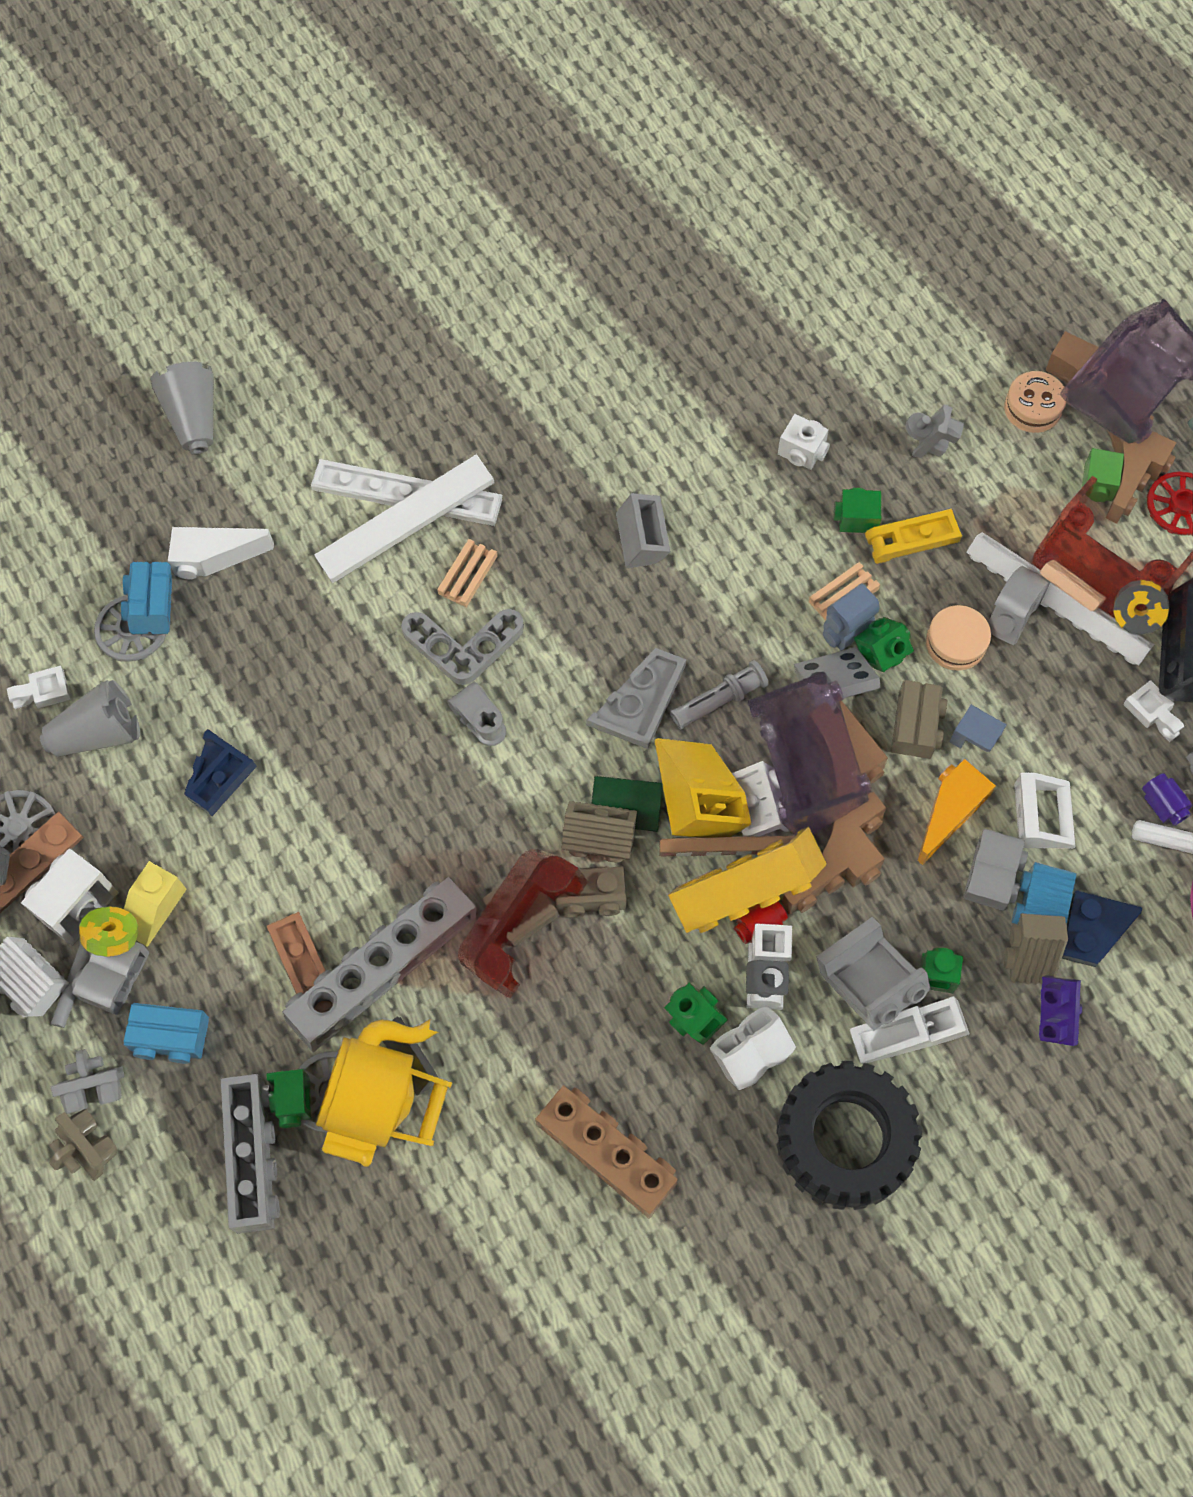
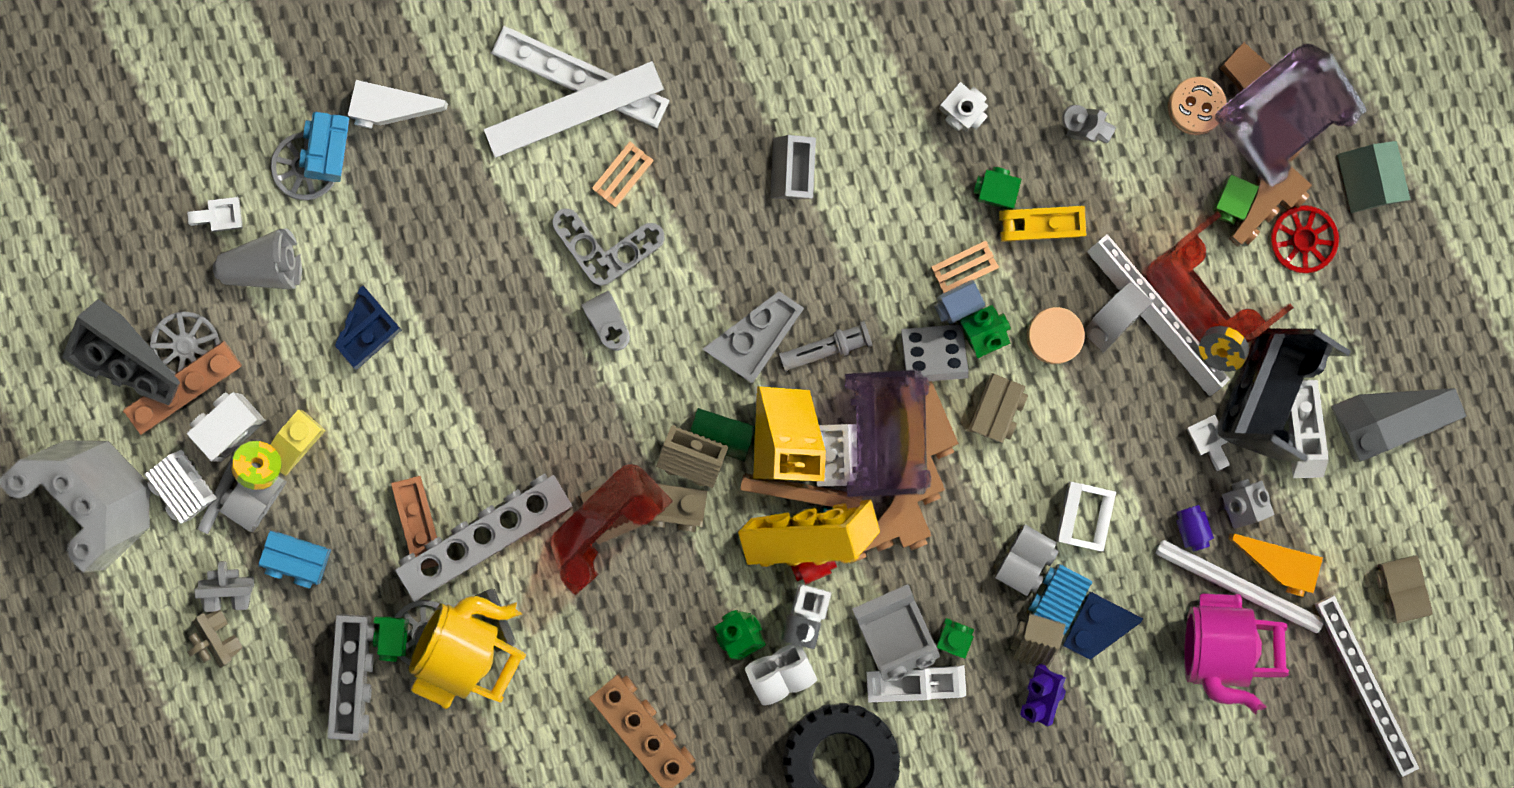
camera: 10 degrees right, 20 degrees up
(957, 799) = (1008, 492): light orange slope -> none
(978, 729) = (1047, 432): sand blue panel -> none
(1072, 585) = (1170, 312): light nougat tile -> none

